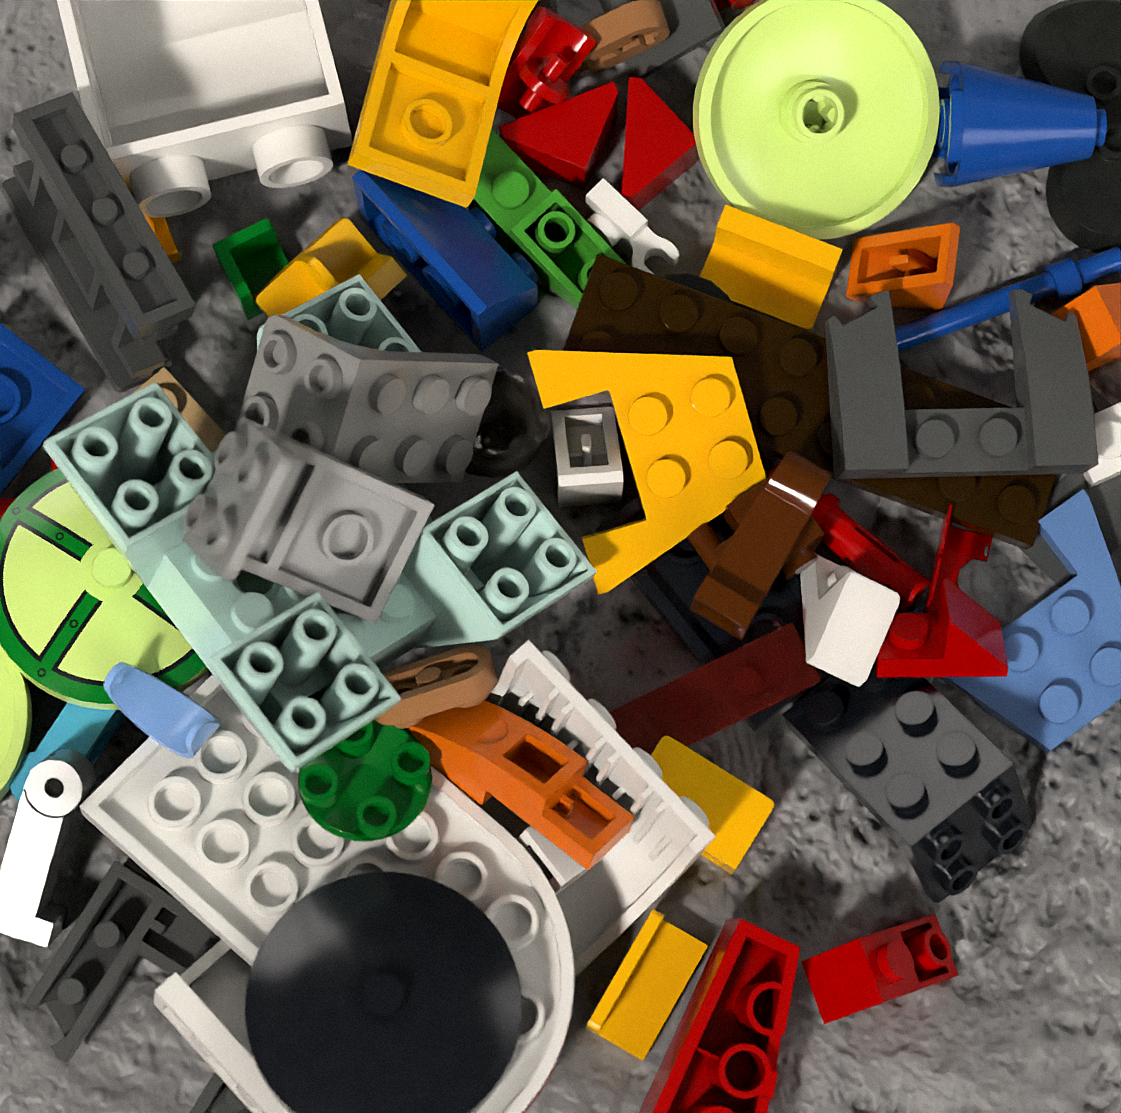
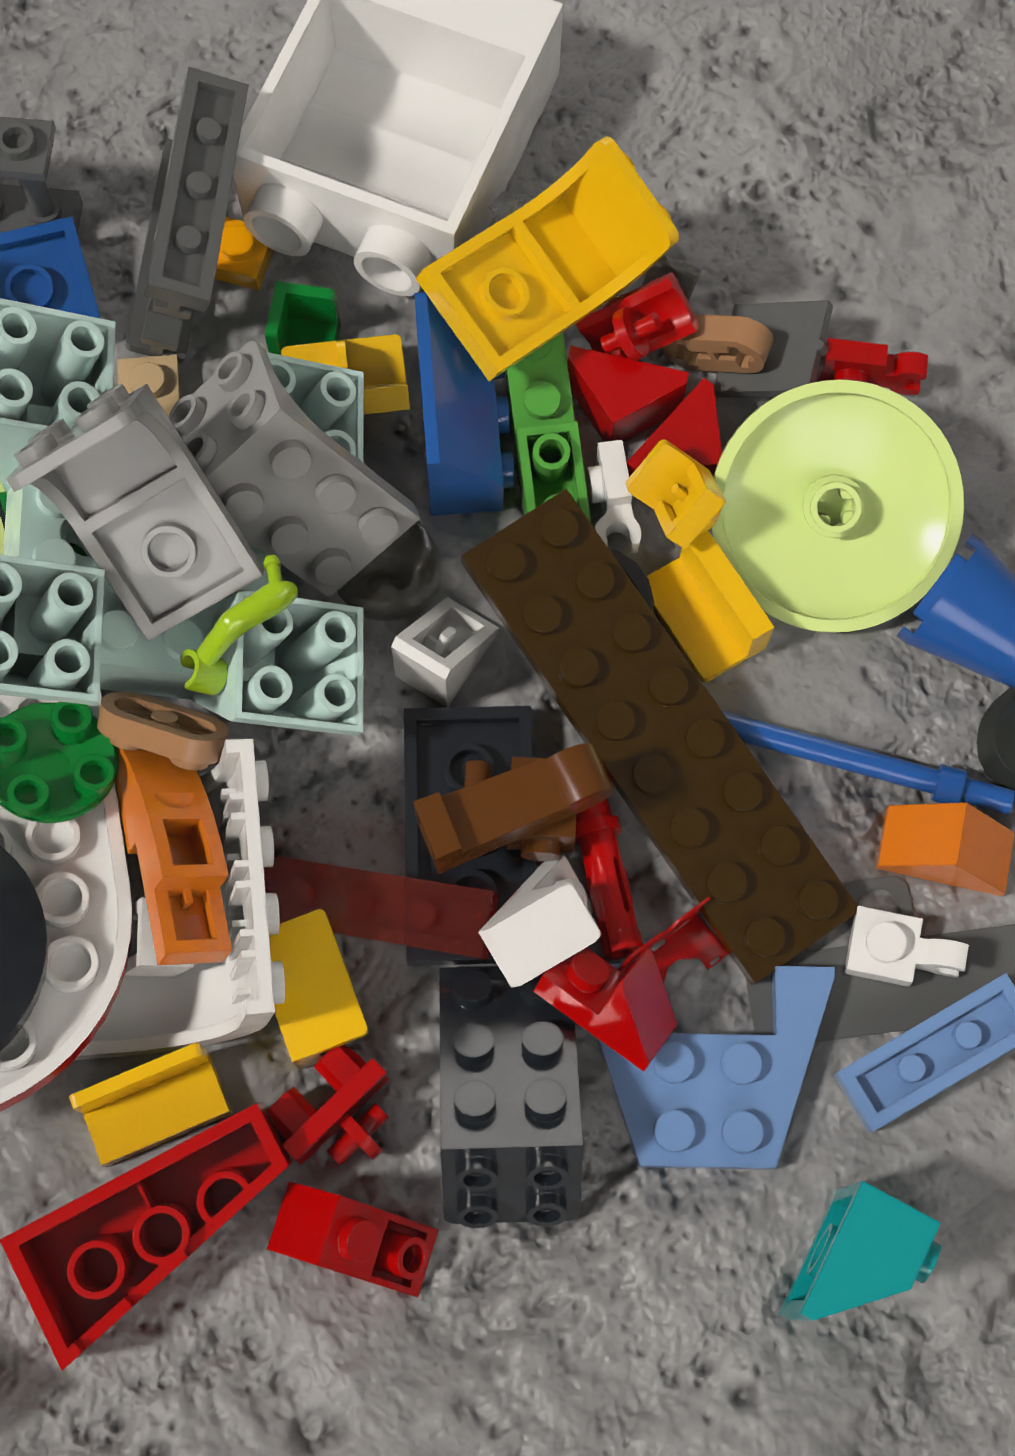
camera: 35 degrees right, 5 degrees down
(445, 560) = (206, 661): none -> lime piece
(681, 436) = (520, 679): yellow wing -> none
(688, 192) = (678, 491): none -> yellow bracket
(790, 851) = (310, 1129): none -> red hips
(880, 439) = (827, 895): dark grey wedge -> none
(909, 263) = (820, 683): orange slope -> none

